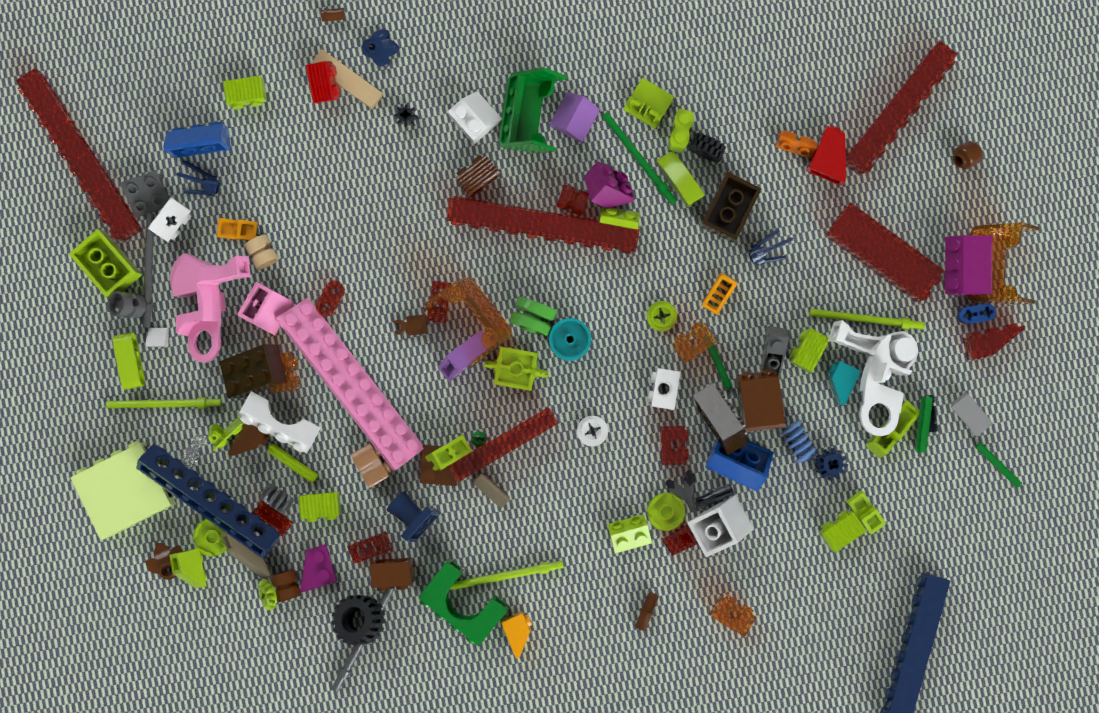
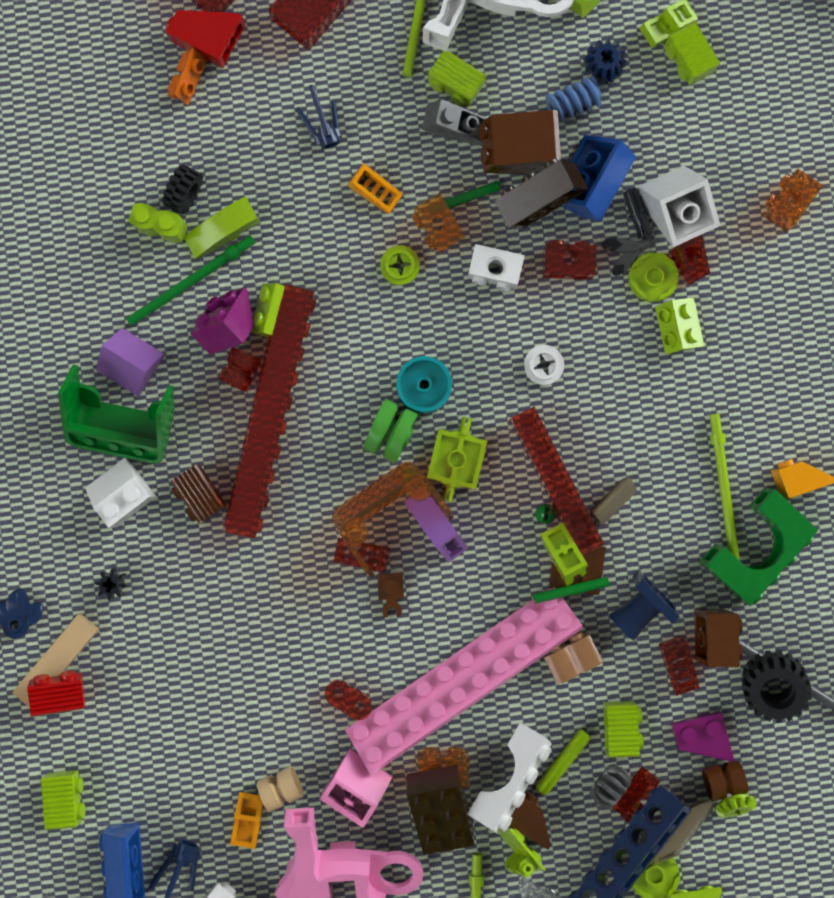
camera: 85 degrees left, 0 degrees up
(422, 461) = (571, 590): none -> green bar
(646, 611) = (781, 310): reddish brown axle -> none
(648, 103) = (118, 263): lime hinge -> none
(730, 207) = (264, 165): dark brown brick -> none
(842, 381) = (499, 39): teal slope -> none

